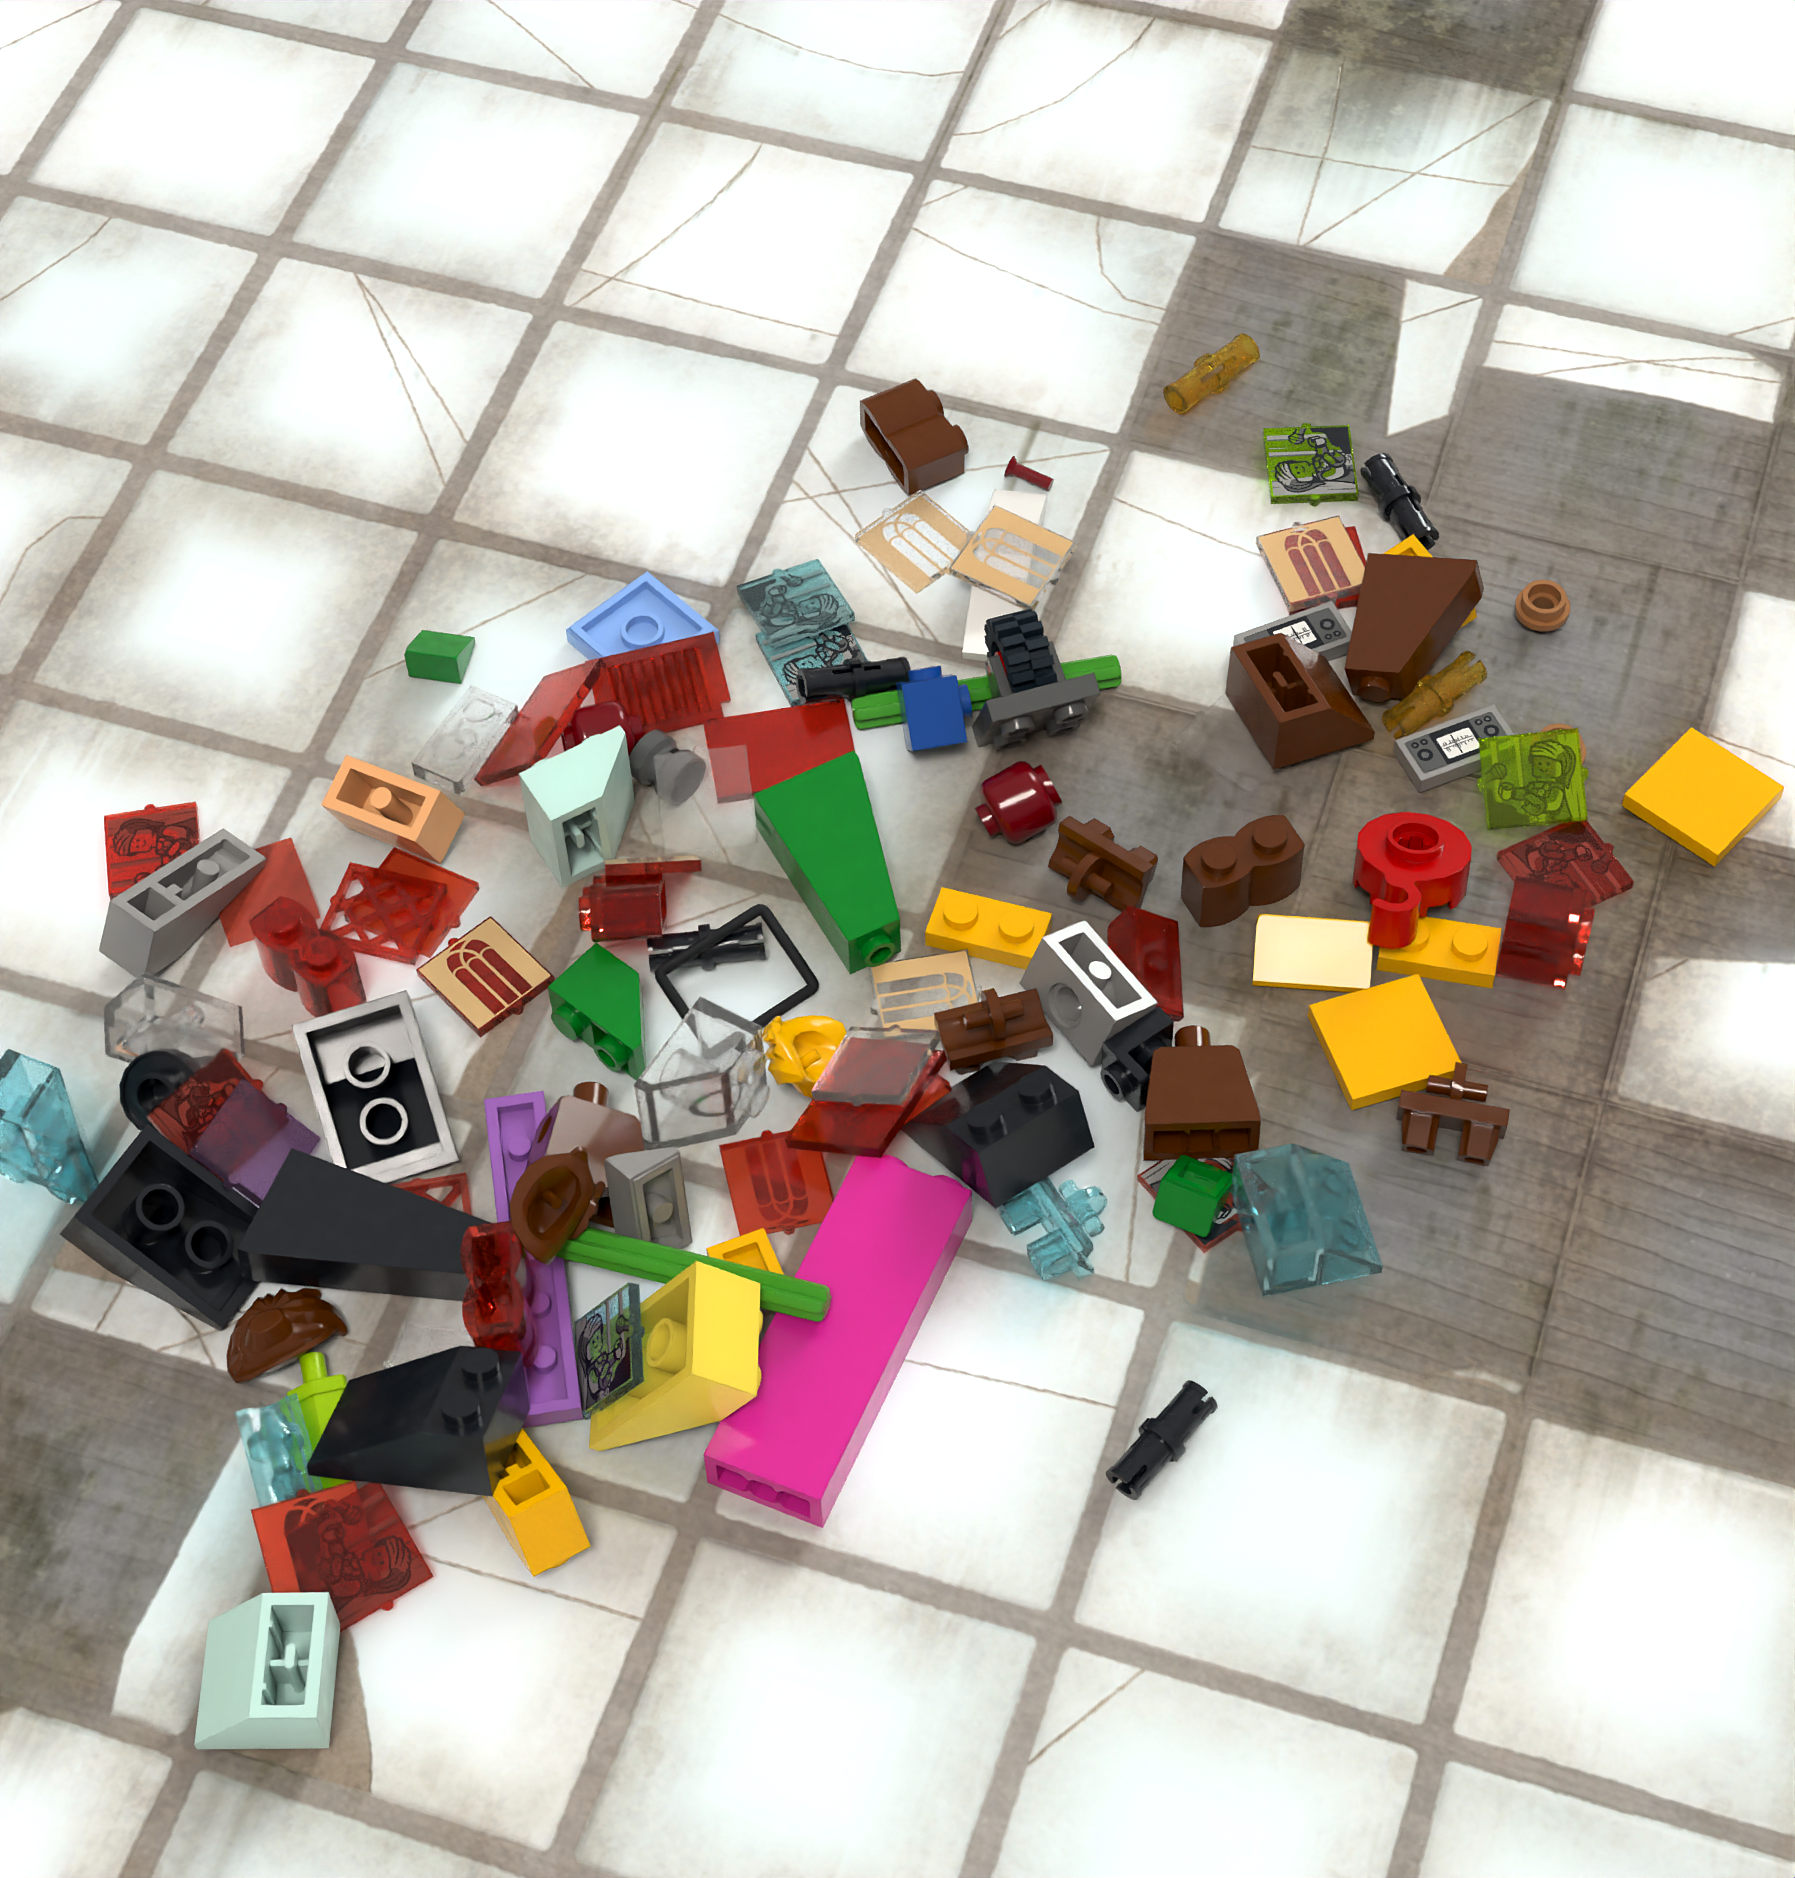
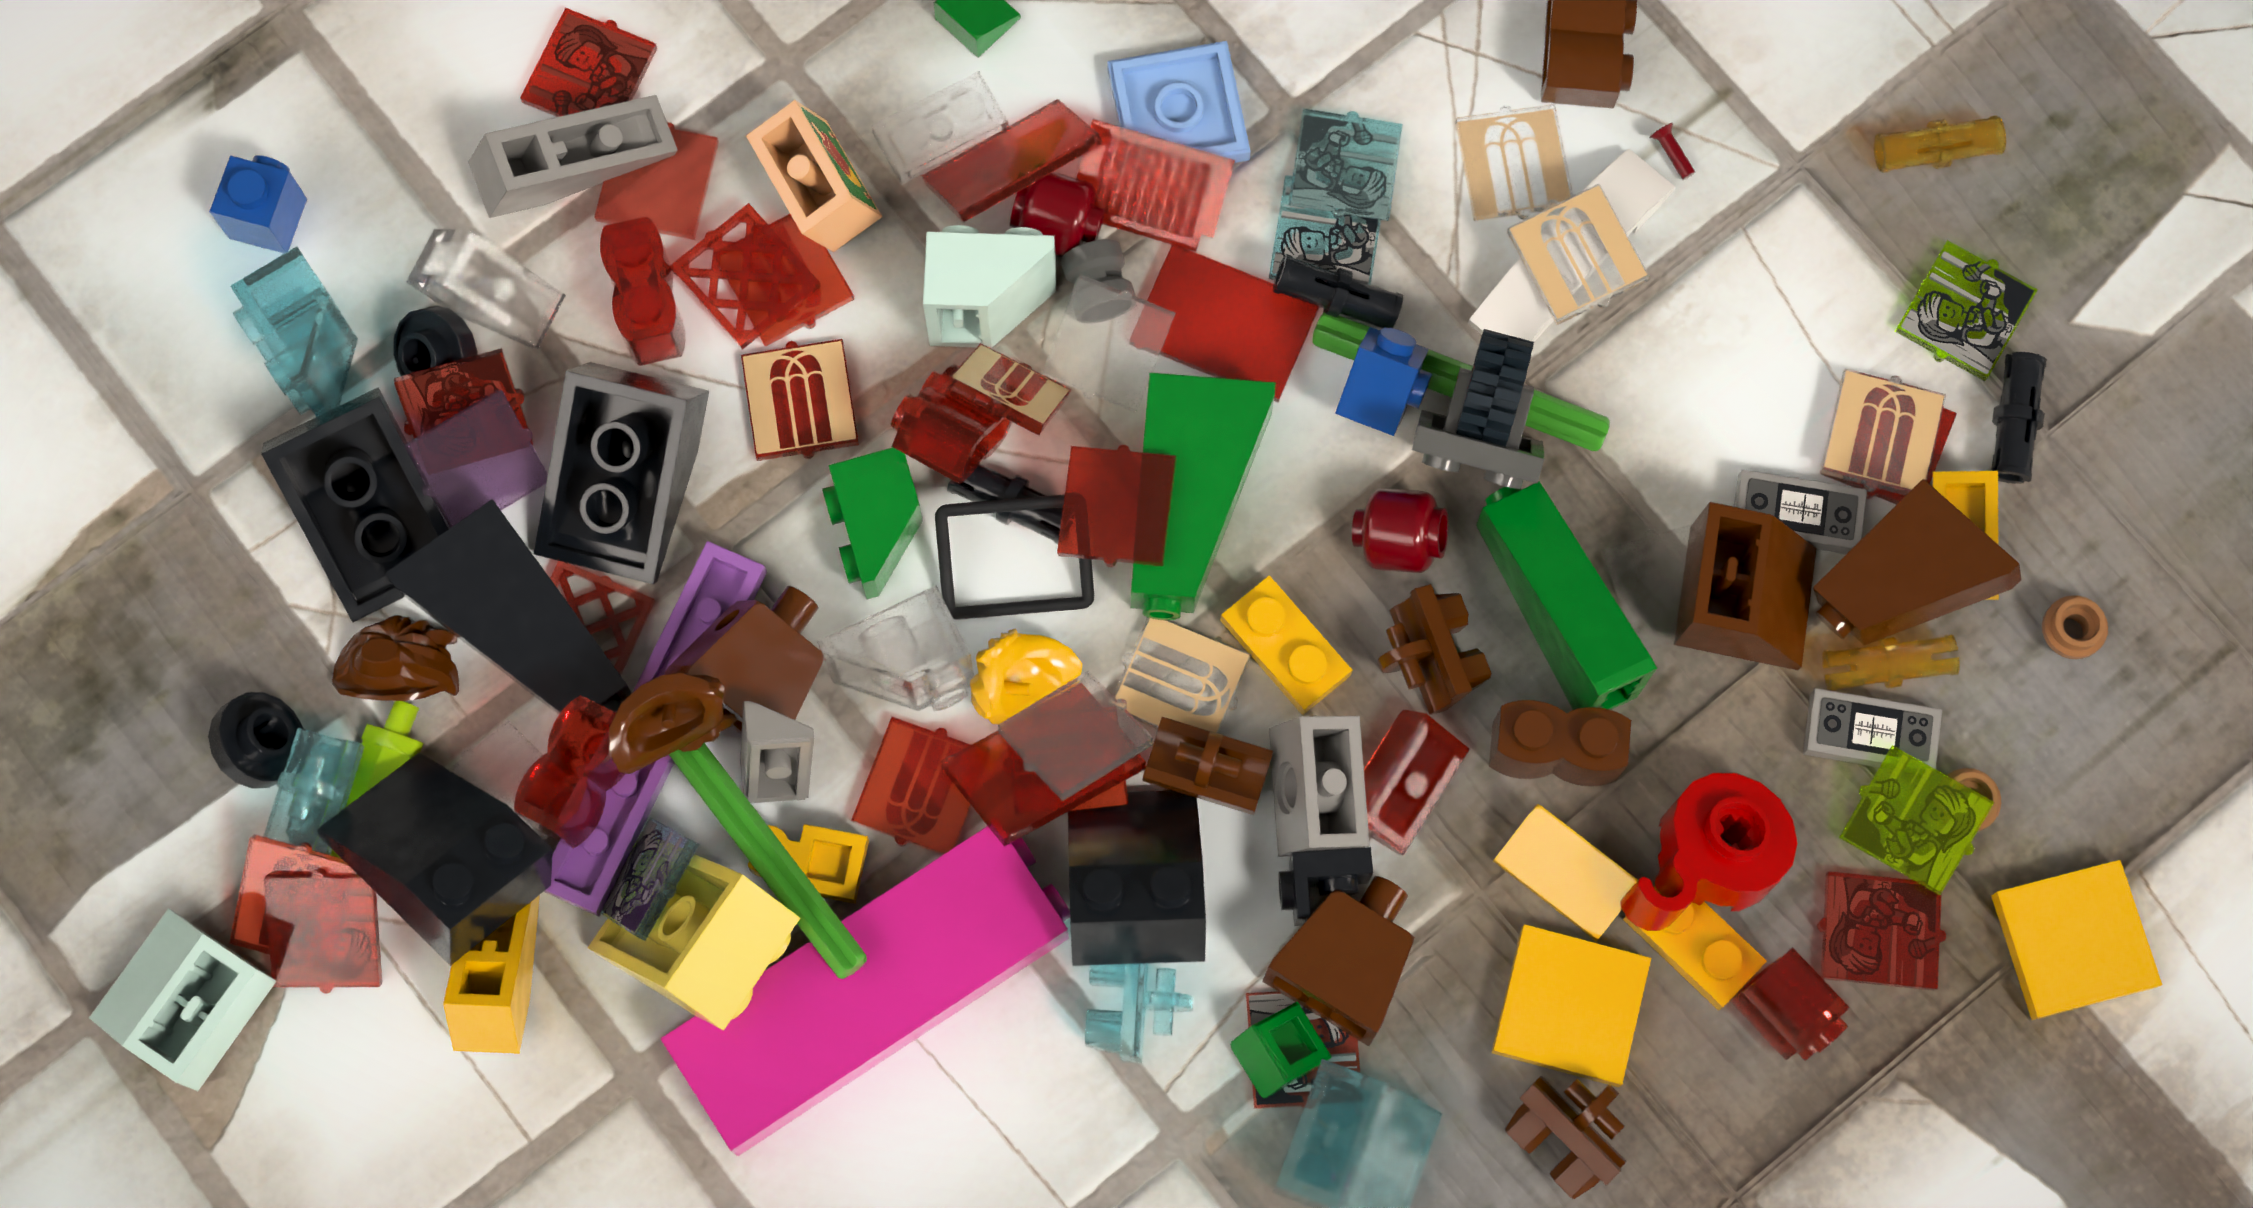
camera: 30 degrees right, 20 degrees up
(202, 1448) = (253, 738): none -> black plate
(795, 890) = (1116, 506): none -> clear red piece
(1173, 774) = (1564, 600): none -> green slope

